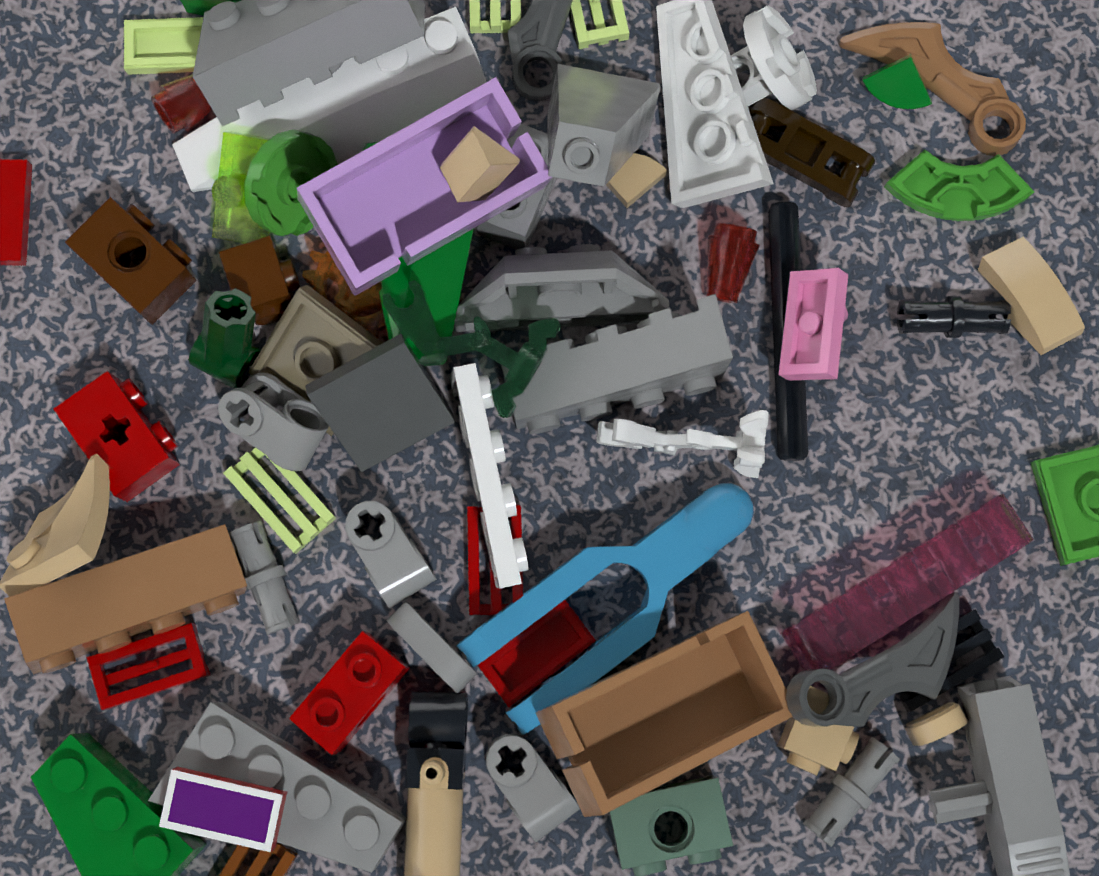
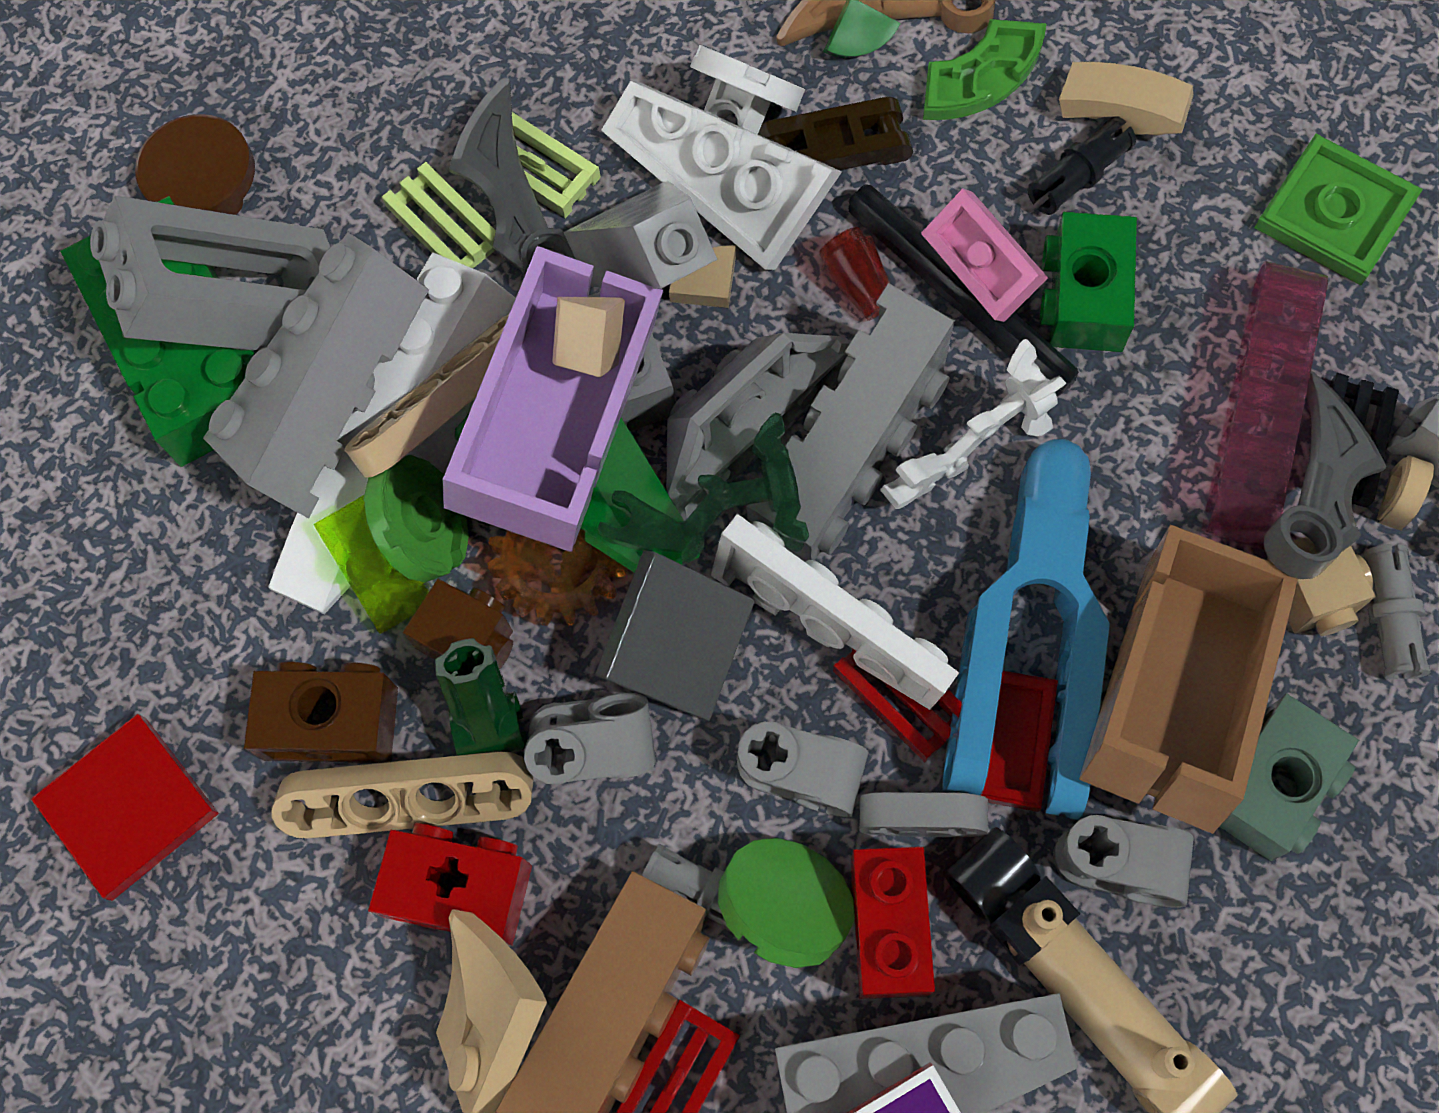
camera: 35 degrees left, 10 degrees down
(88, 319) = (401, 786): none -> tan beam
(161, 45) = (191, 505): yellowish green tile -> none
(181, 104) = (250, 535): clear red cone -> none
(249, 461) = (710, 813): yellowish green tile -> none
(300, 623) = (786, 902): none -> bright green tile
(311, 342) = (561, 643): dark tan tile -> none
(355, 114) = (424, 407): none -> tan beam
(903, 391) = (1096, 250): none -> green brick

